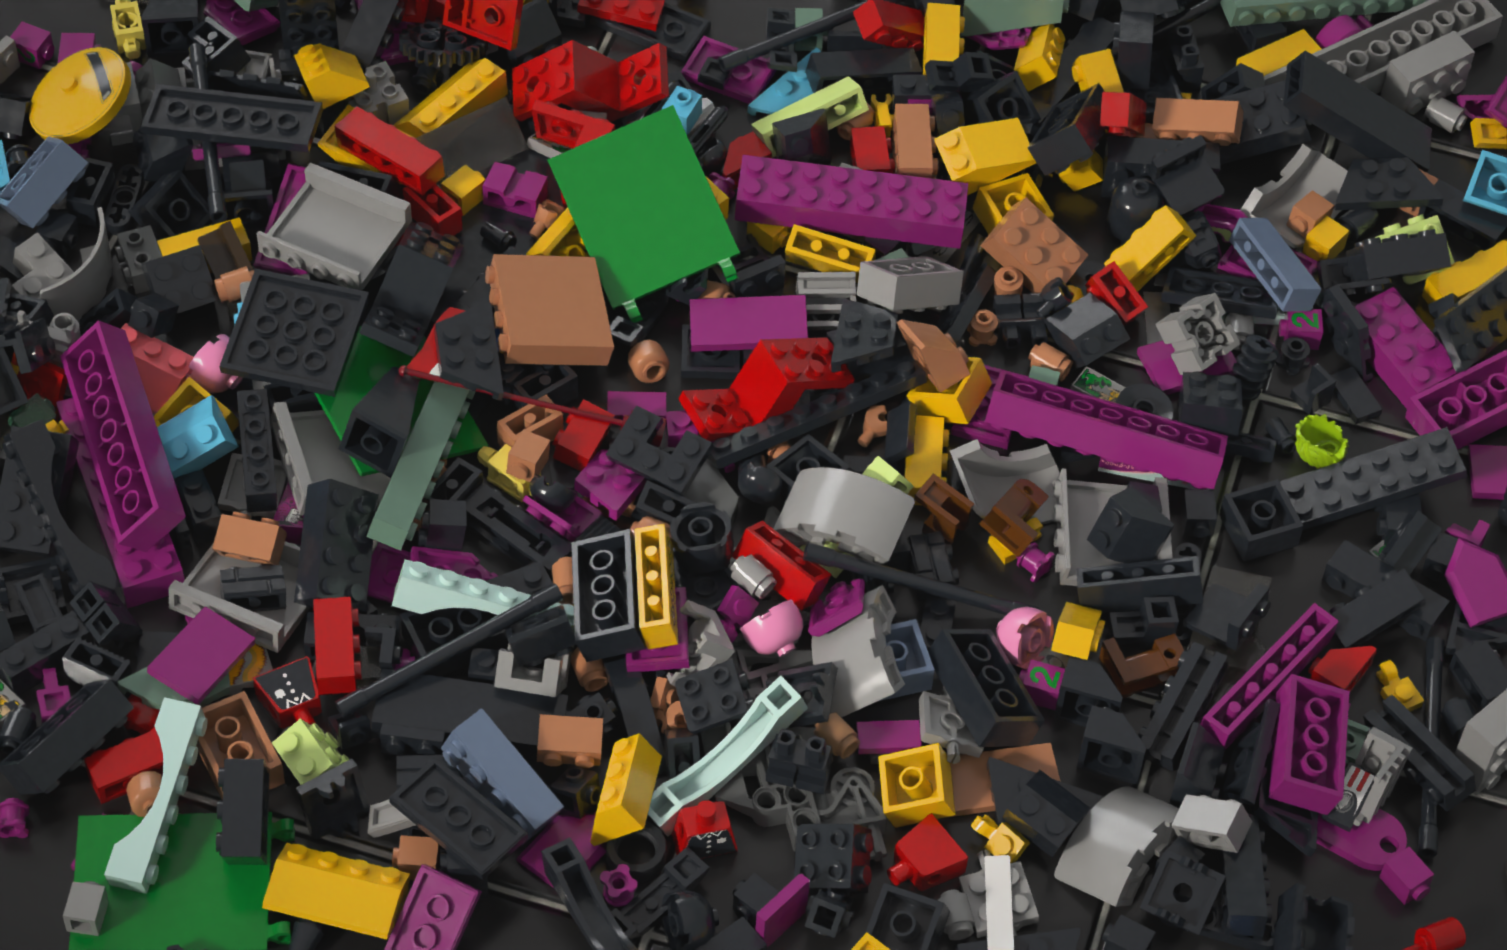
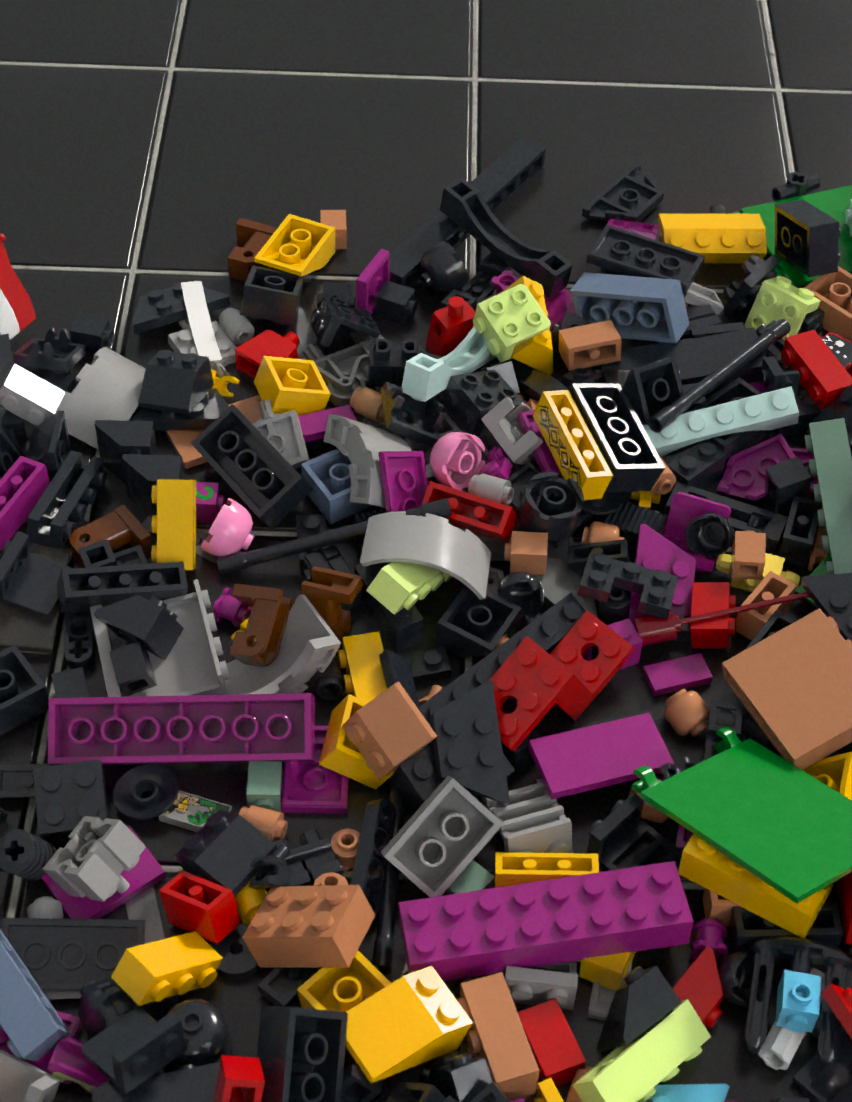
camera: 165 degrees right, 5 degrees down
(657, 755) = (509, 320): none -> yellowish green bracket
(742, 513) = (527, 552): none -> nougat brick

